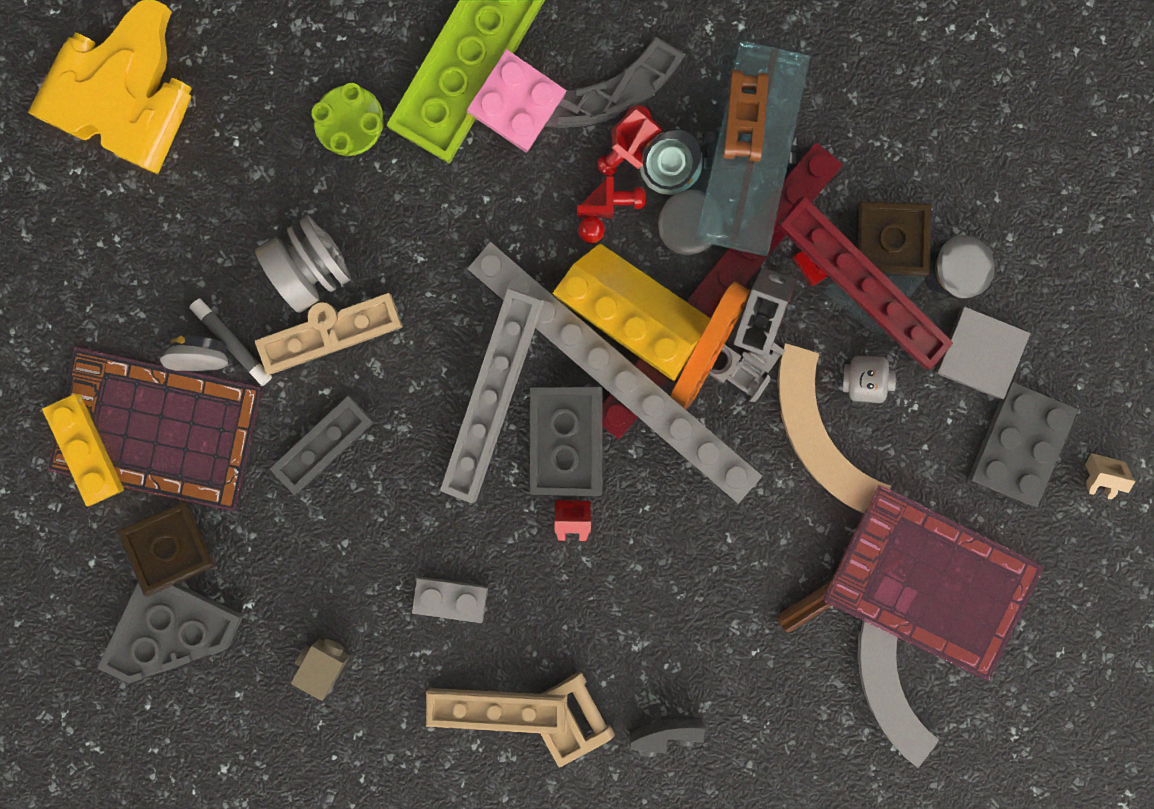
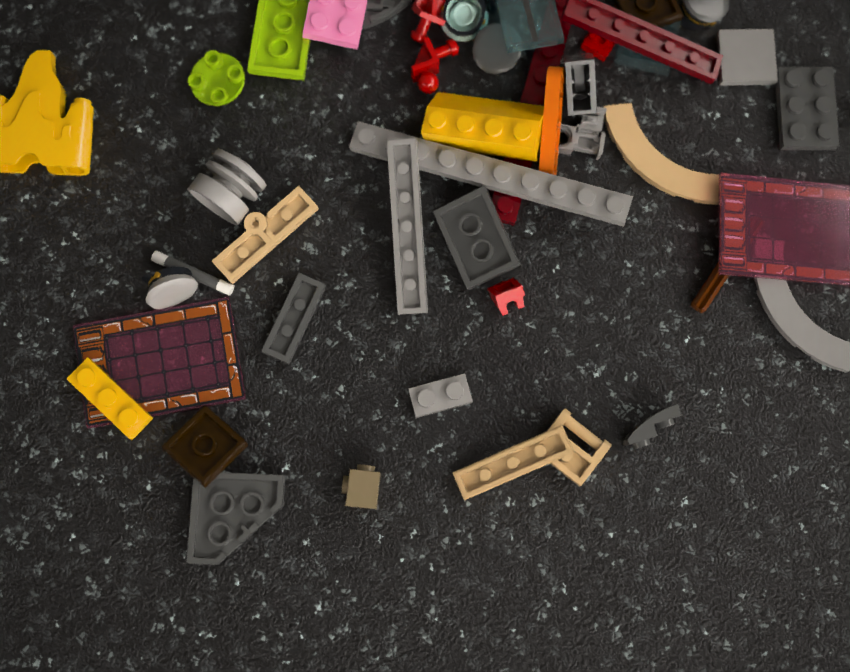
camera: 25 degrees left, 10 degrees down
(868, 379) = (675, 105): light grey head -> none

